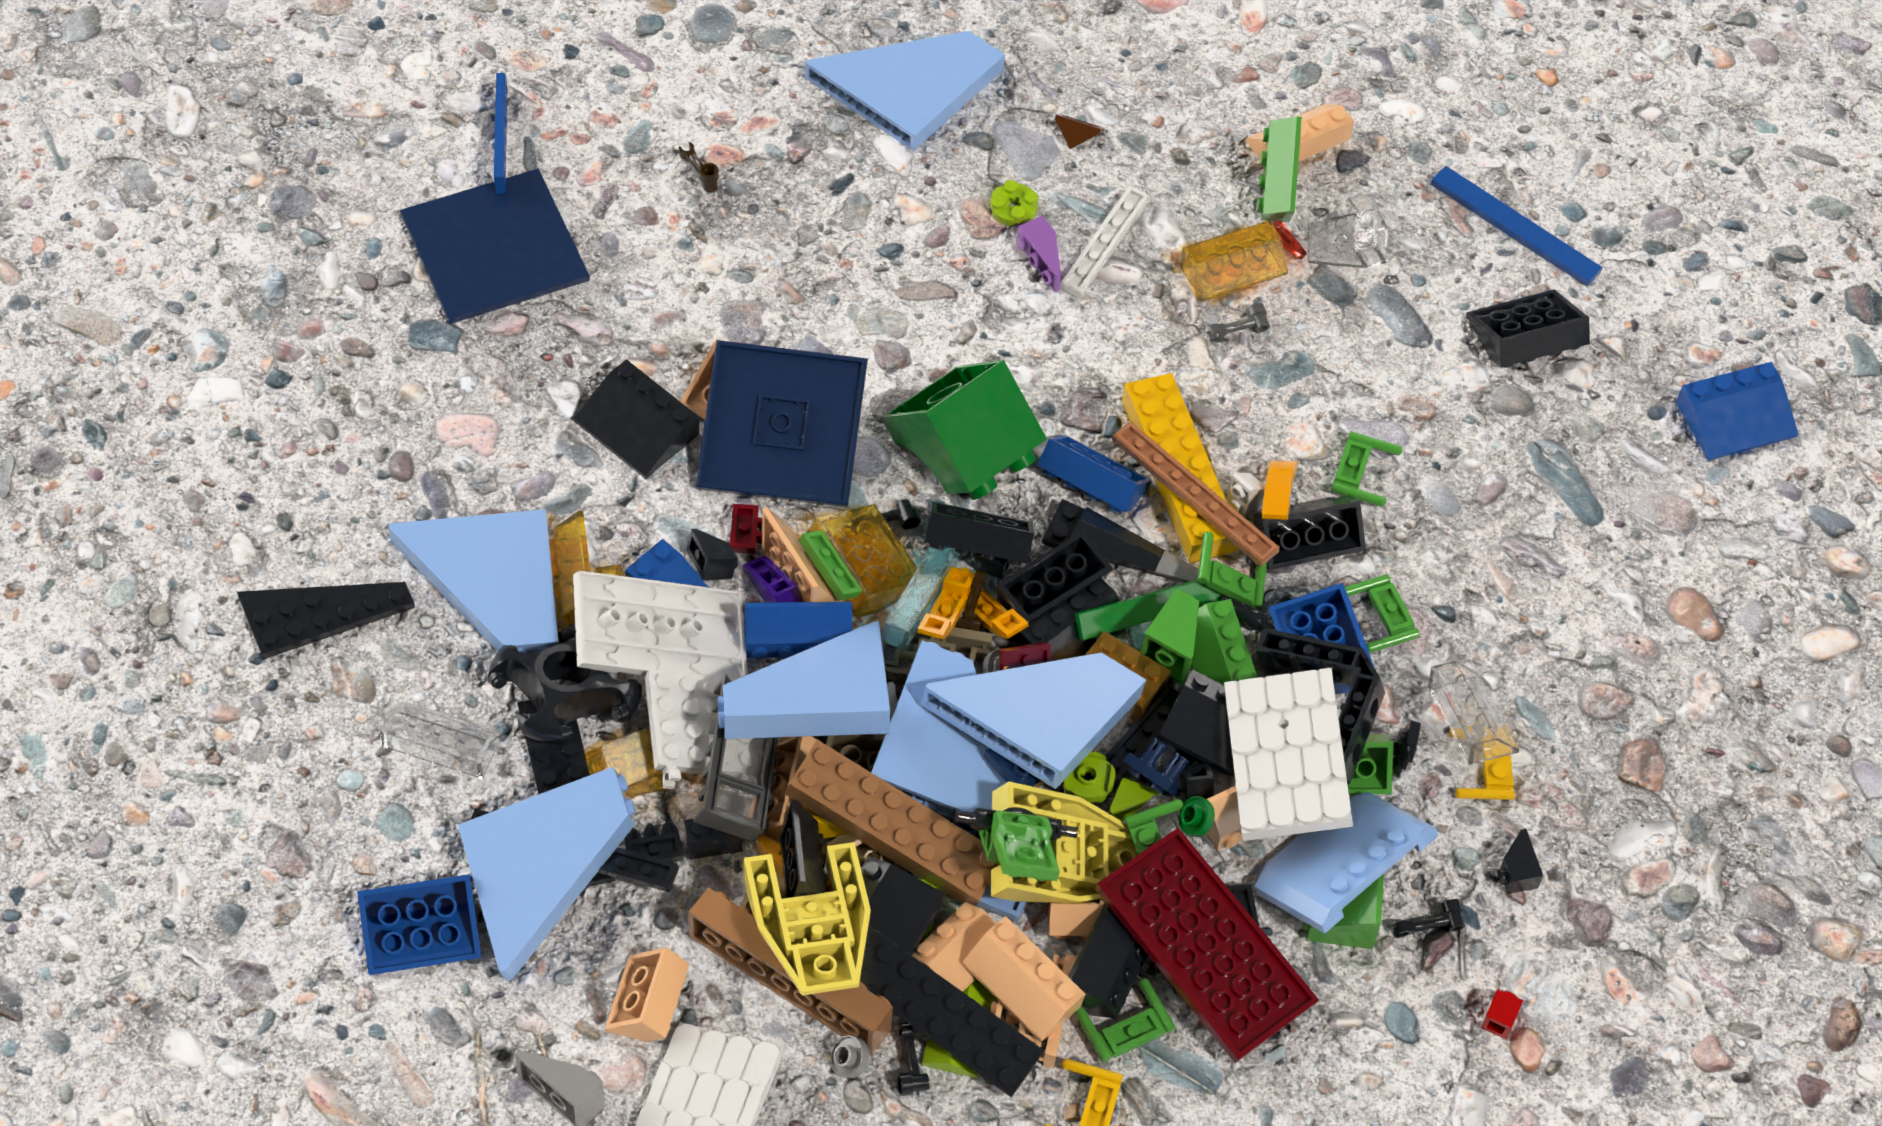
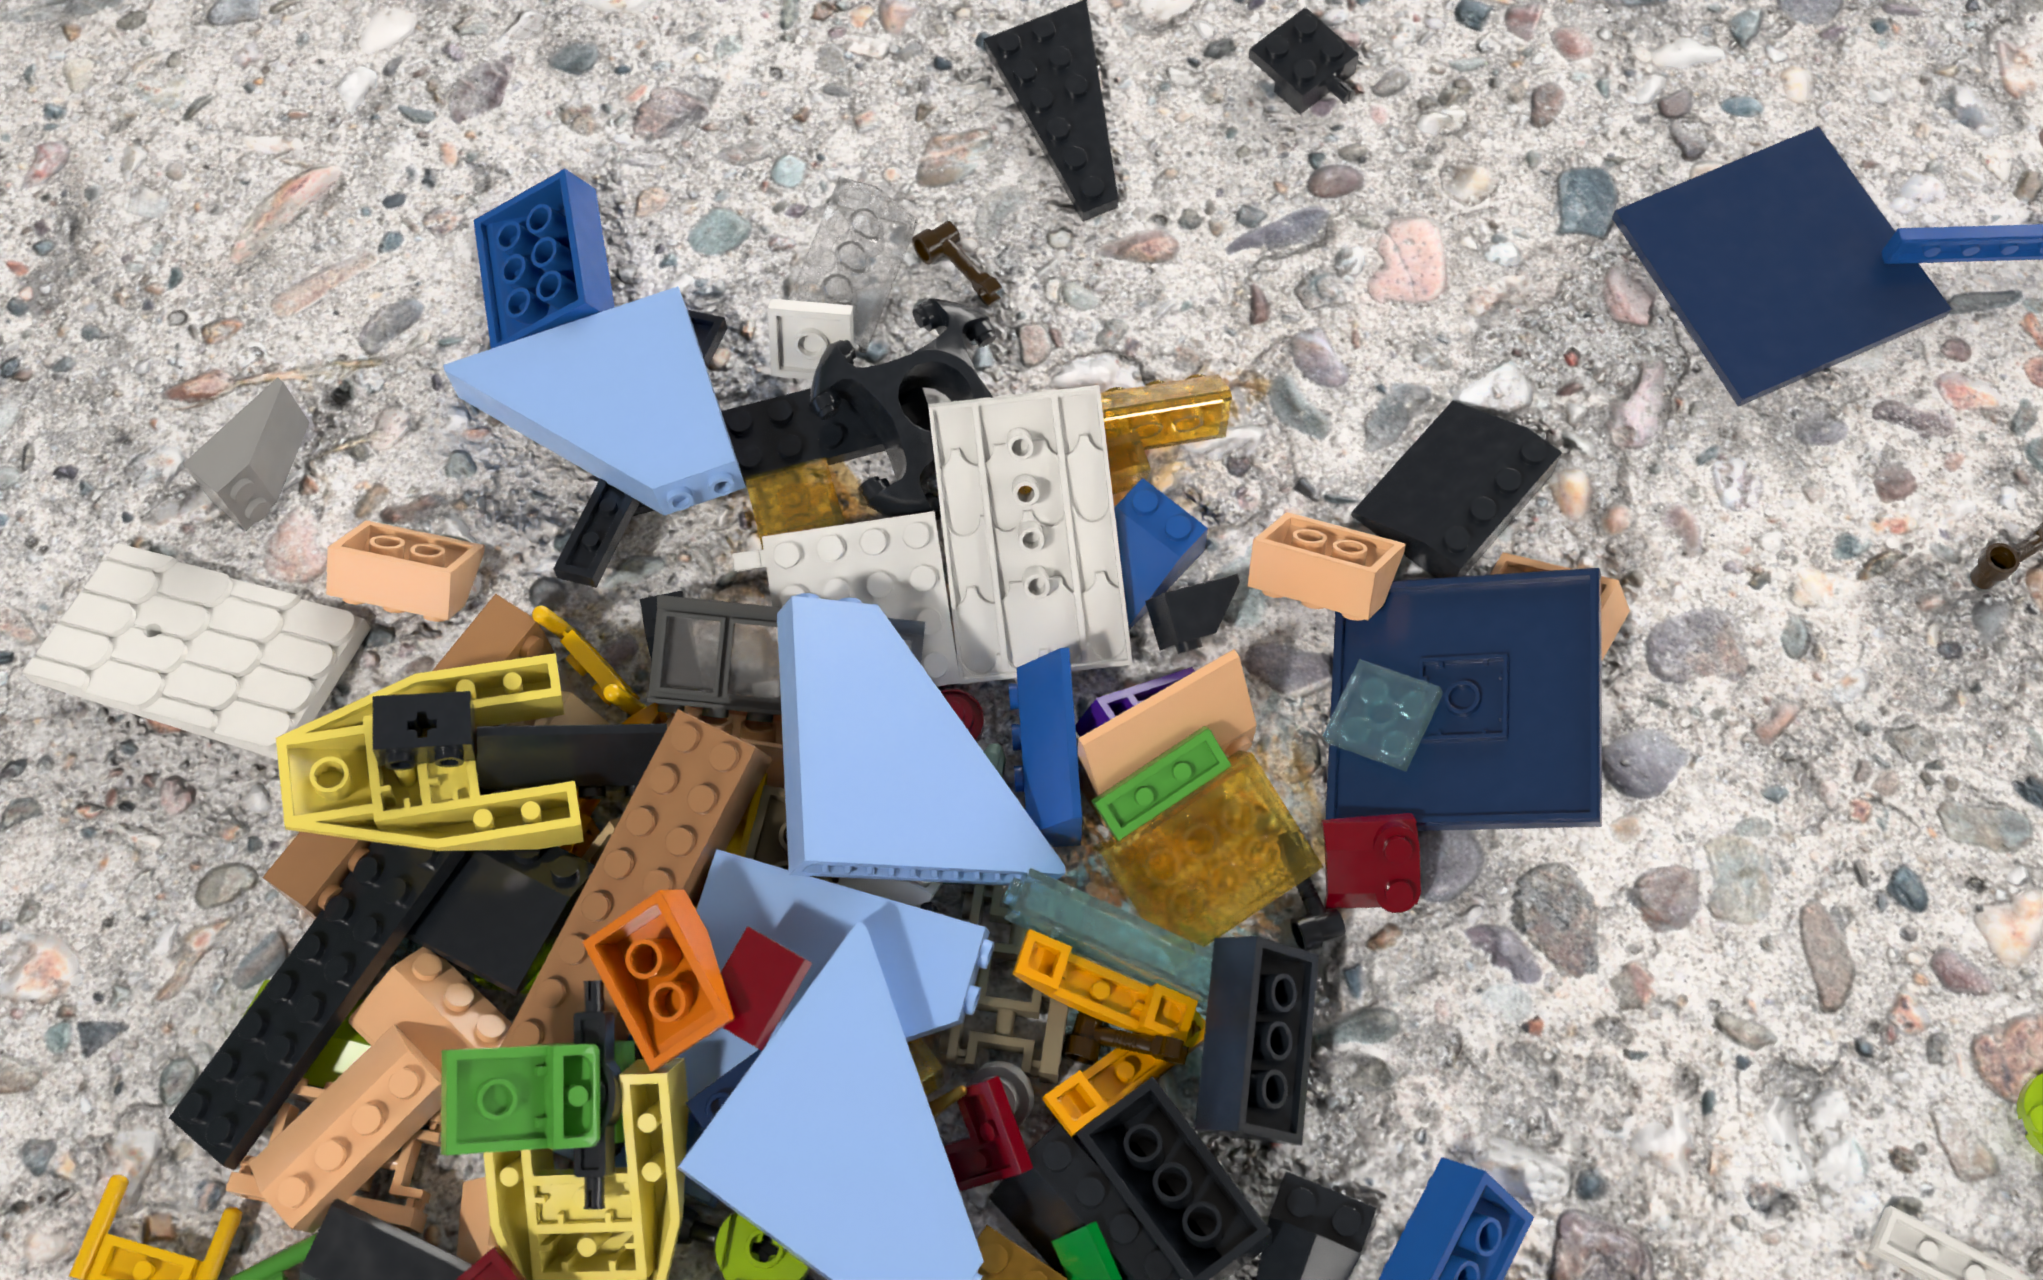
camera: 95 degrees right, 10 degrees up
(311, 468) = (1306, 61): none -> black plate
(427, 685) = (941, 242): none -> dark brown brick
(490, 571) = (1135, 306): light blue slope -> none
(504, 751) = (802, 332): none -> white plate
(653, 844) = (657, 559): black plate -> none
(688, 484) = (1324, 565): none -> light nougat slope
(731, 874) = (586, 658): none -> yellow plate
(744, 528) = (1267, 665): dark red hinge -> none
(788, 462) = (1382, 715): none -> clear light blue plate
(800, 909) = (400, 722): none -> black brick
(849, 1056) = (260, 859): light grey plate -> none
(873, 478) = (1372, 862): none -> dark red slope
(912, 1080) = (230, 963): black brick -> none
(955, 781) = (662, 975): none -> orange slope
(959, 742) = (760, 985): none -> dark red slope
(968, 427) = (1491, 1018): green brick -> none
(1040, 245) = (1974, 1167): medium lavender slope -> none

